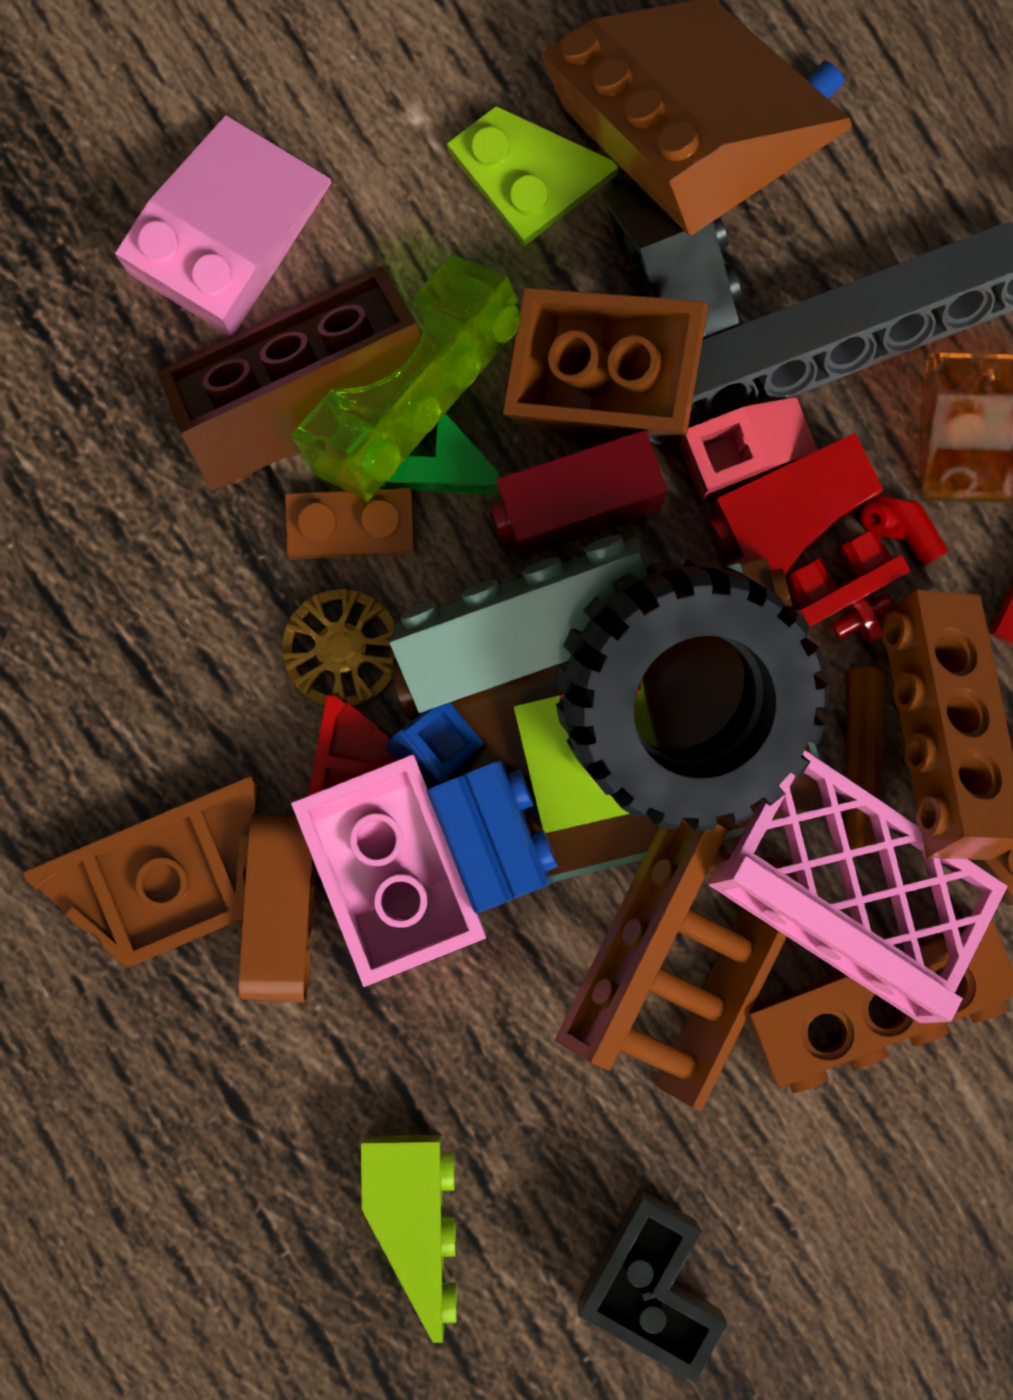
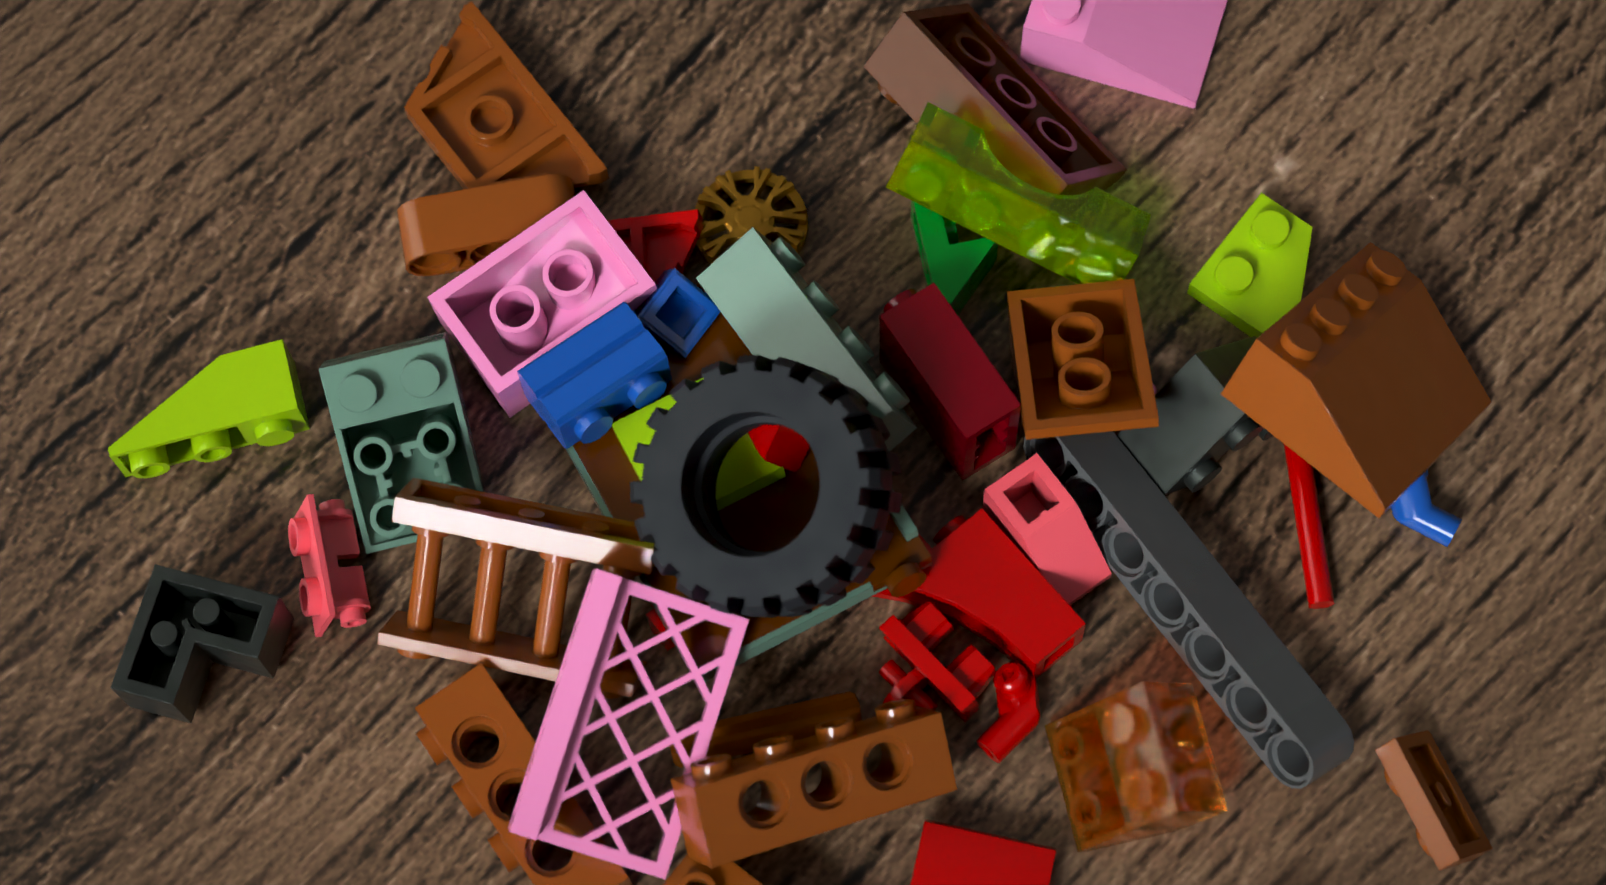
camera: 75 degrees right, 15 degrees down
(349, 526) = (871, 212): dark orange plate -> none
(480, 1043) = (398, 420): none -> sand green slope
(621, 1148) = (321, 541): none -> coral hinge
(810, 205) = (1309, 531): none -> red bar

